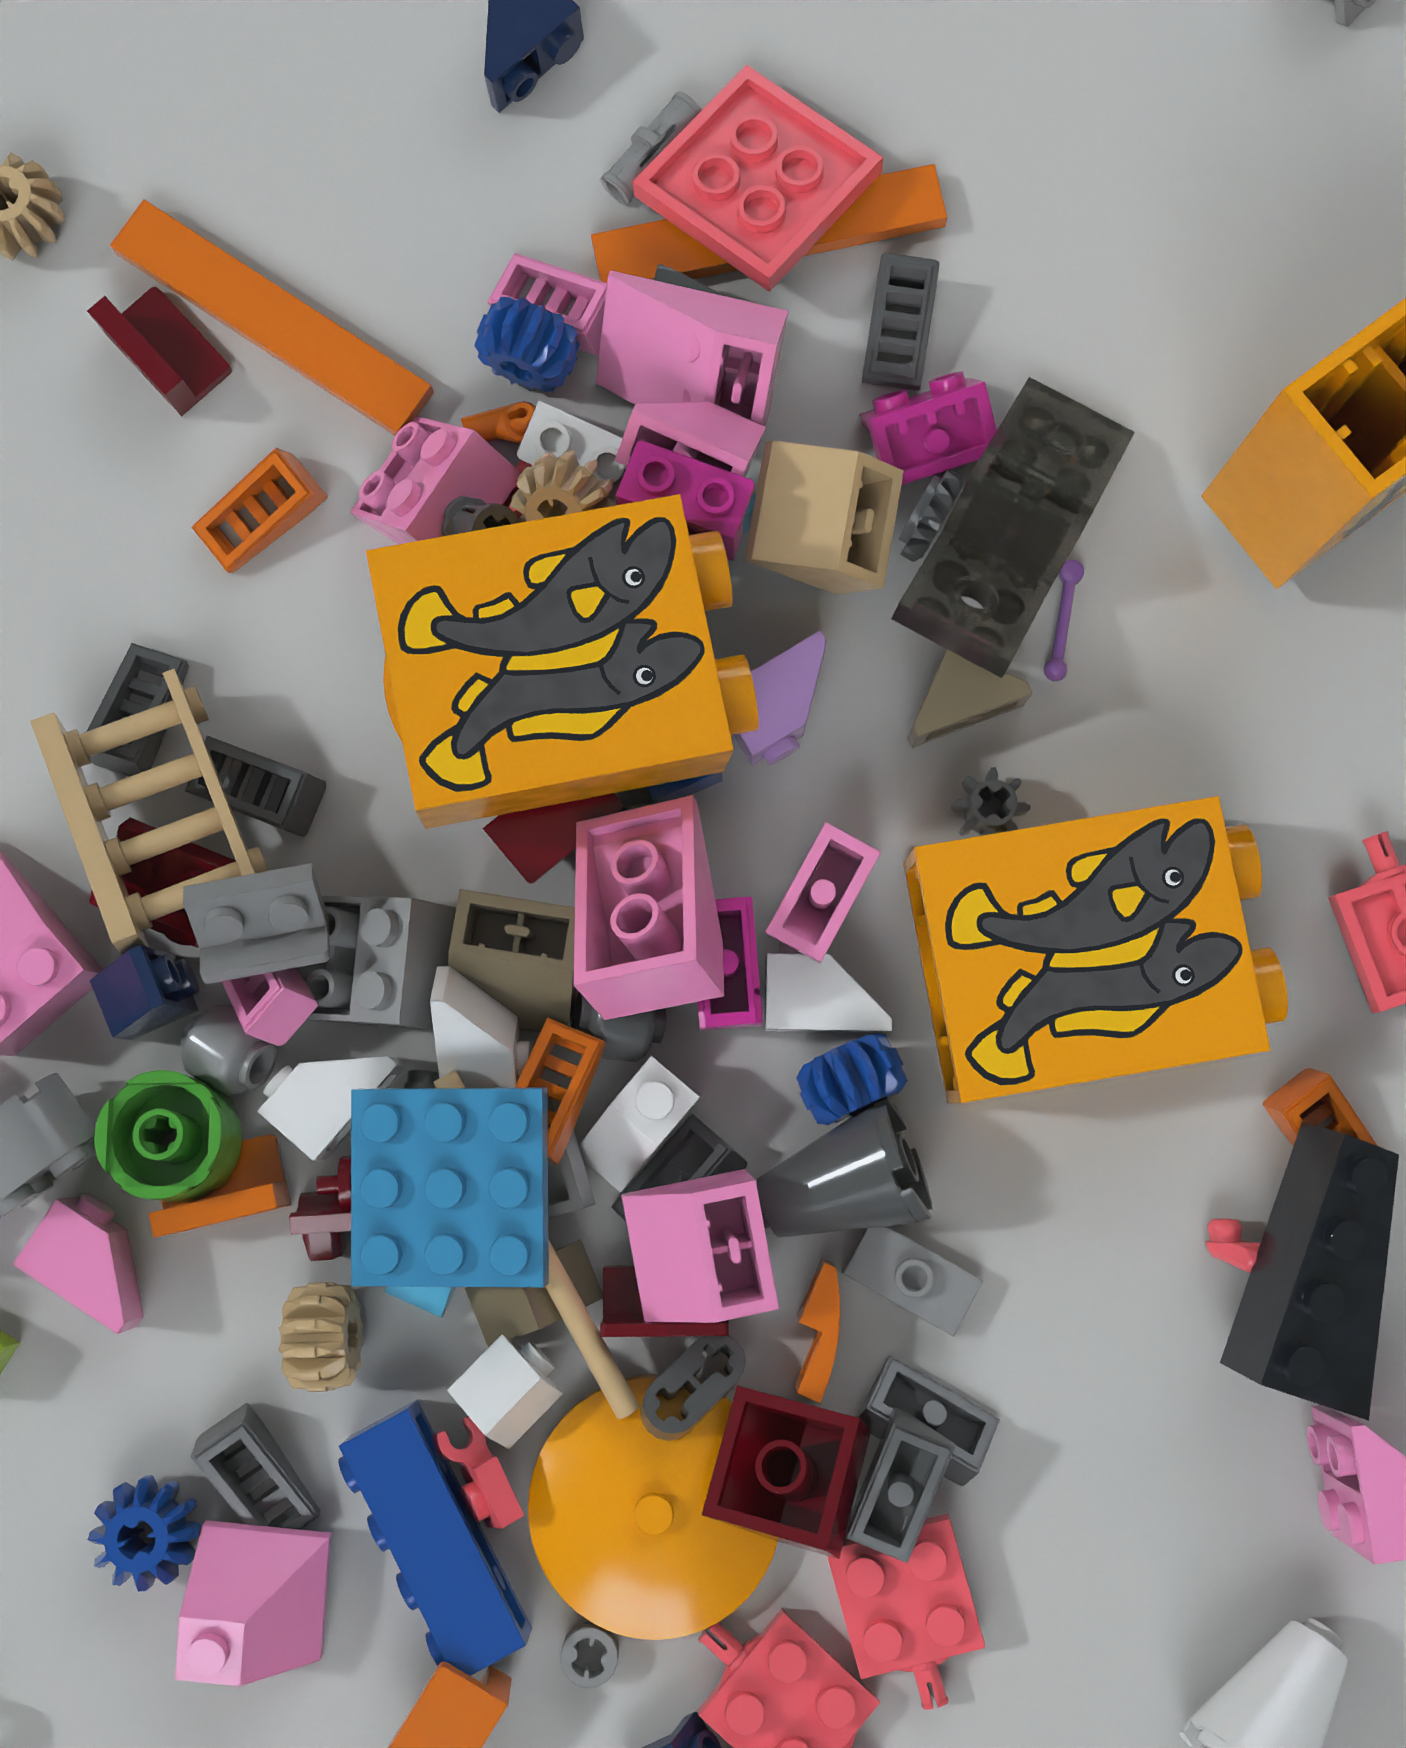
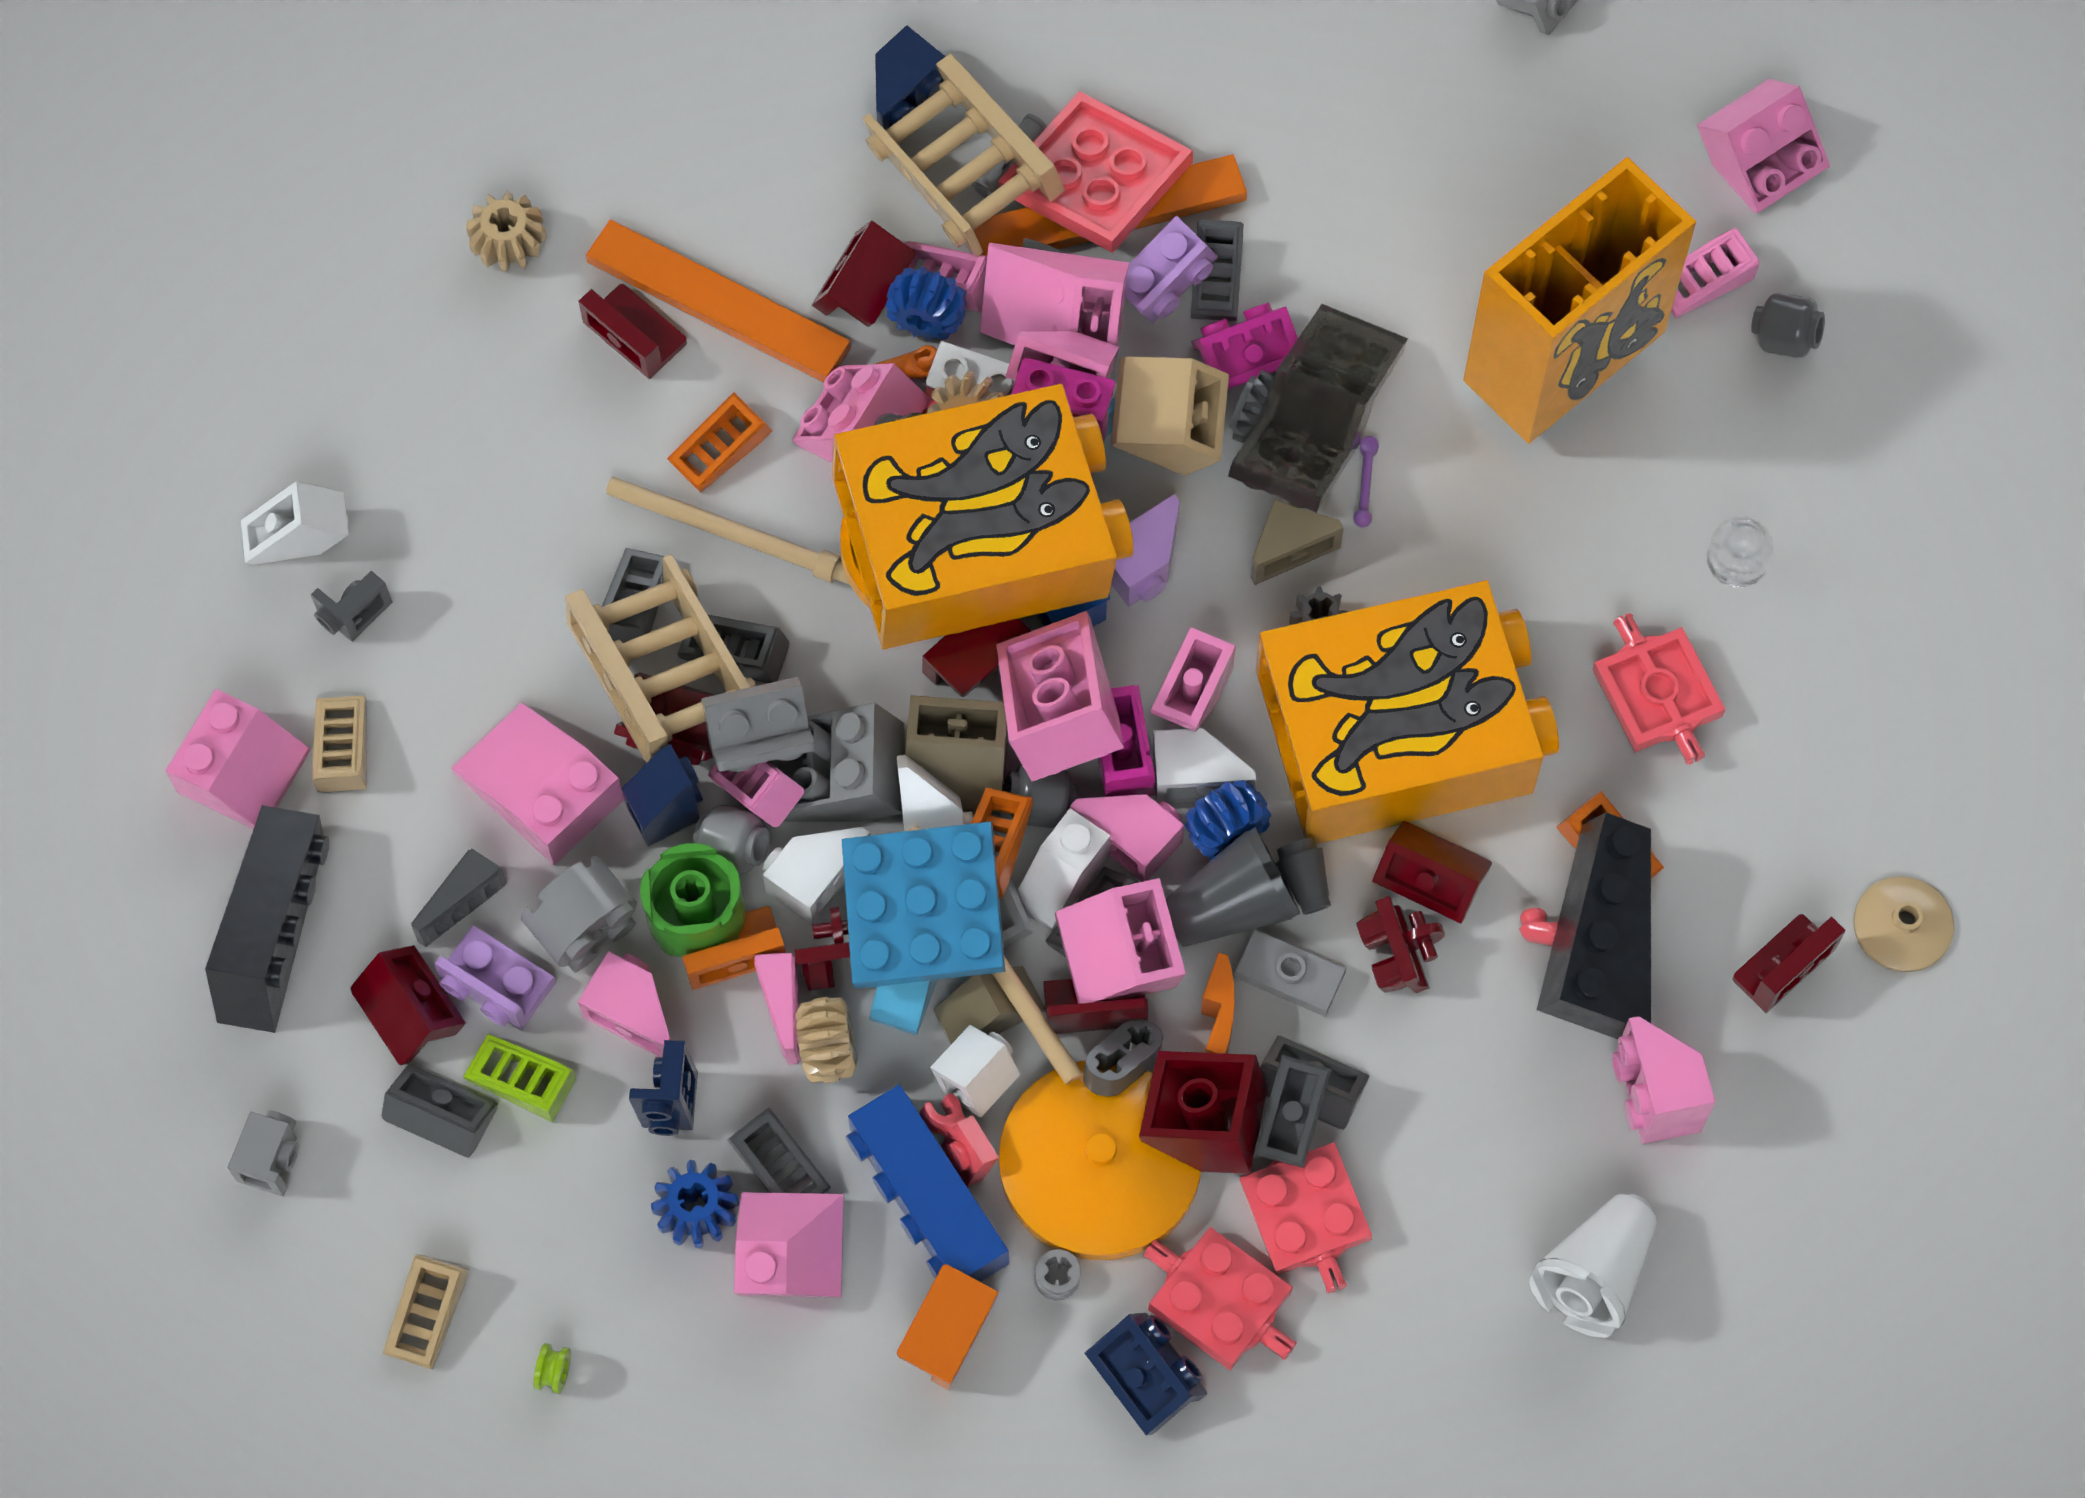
camera: 10 degrees left, 15 degrees down
(120, 1393) = (673, 1105): none -> dark blue bracket
(273, 1268) = (780, 988): none -> bright pink slope
(365, 680) = (823, 564): none -> tan bar
(455, 297) = (864, 274): none -> dark red panel
(644, 136) = (982, 116): none -> tan fence
(731, 1076) = (1139, 830): none -> bright pink slope
(837, 317) = (1167, 270): none -> lavender bracket
(942, 1150) = (1305, 874): none -> dark grey cone
(1058, 1287) = (1390, 926): none -> dark red hips
(1104, 1156) = (1431, 871): none -> dark red panel

